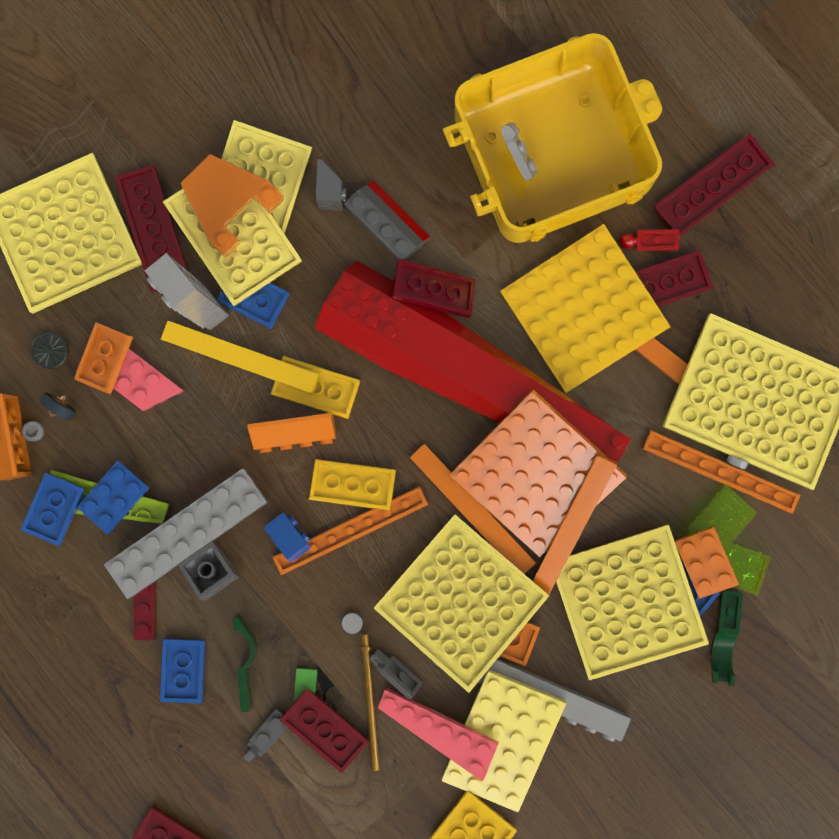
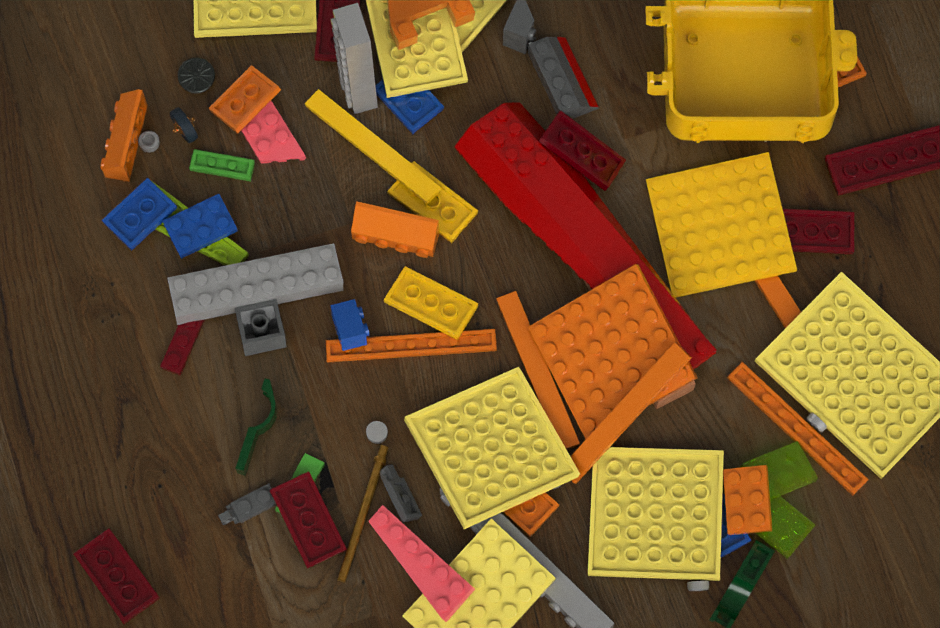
camera: 25 degrees right, 15 degrees down
(109, 427) = (222, 165): none -> bright green tile
(182, 670) = (194, 412): blue plate -> none
(519, 151) = (710, 54): light grey hinge -> none
(652, 240) = (811, 186): red plate -> none
(689, 654) = (698, 585): none -> light grey tile

